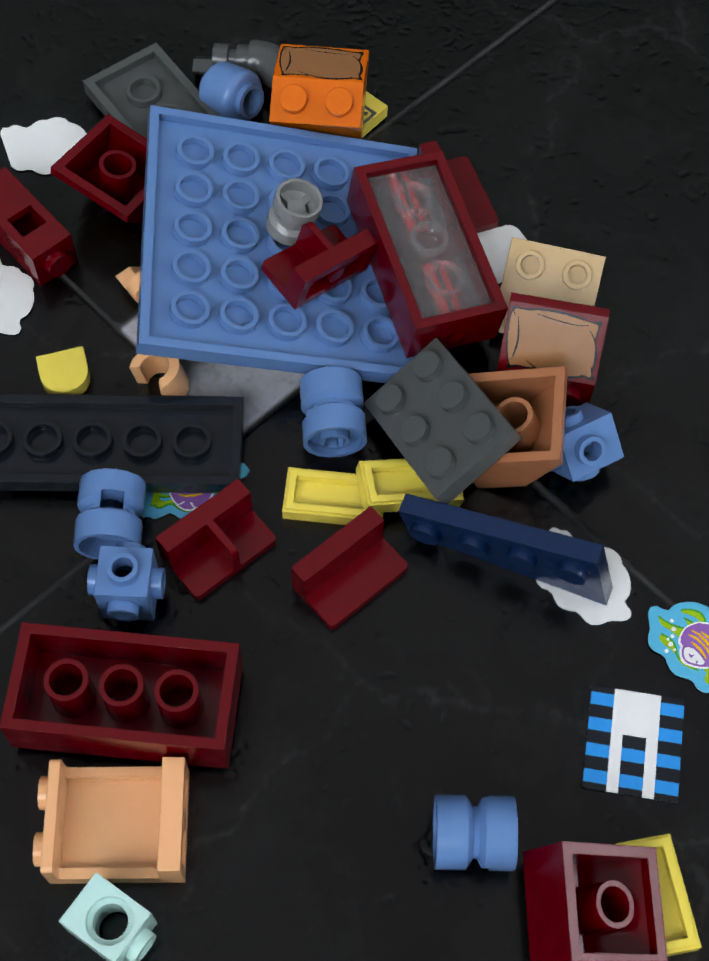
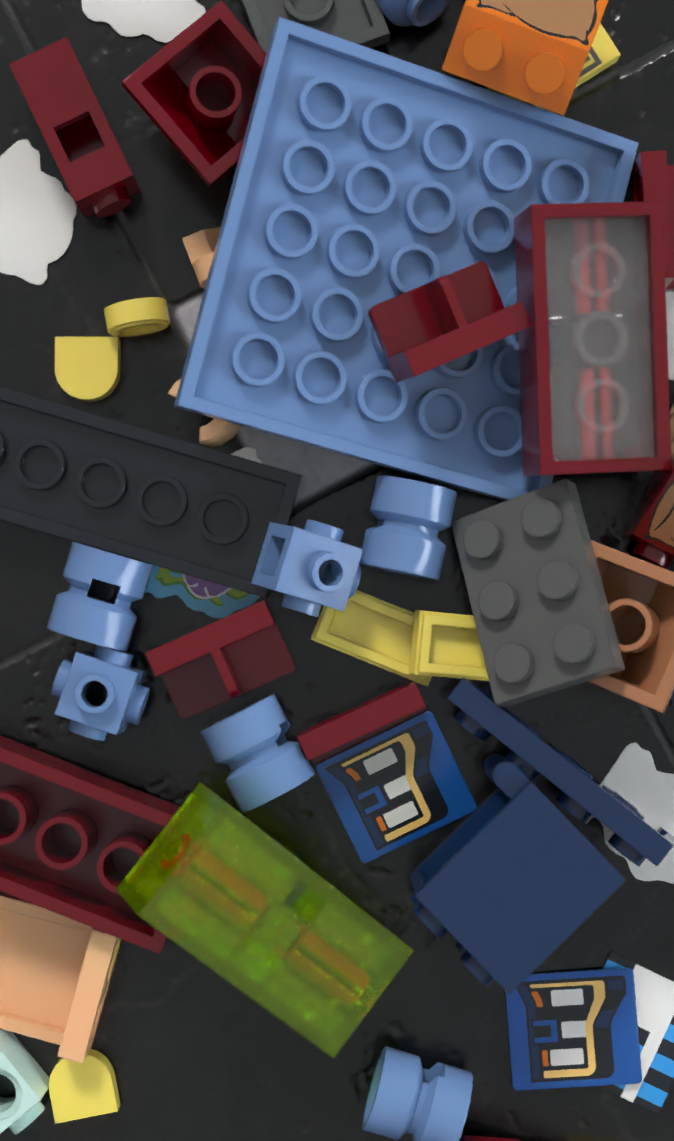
camera: 20 degrees right, 25 degrees up
(94, 328) = (137, 317): none -> light yellow tile
(185, 913) = (83, 1088): none -> light yellow tile
(256, 587) = (258, 753): none -> medium blue wheel
(265, 448) = (309, 566): none -> medium blue brick
(293, 206) = (446, 238): light grey wheel -> none
(305, 698) = (263, 920): none -> clear neon green brick
(380, 603) = (396, 787): none -> sticker
(489, 621) = (511, 881): none -> dark blue container
(583, 752) = (574, 1030): none -> sticker

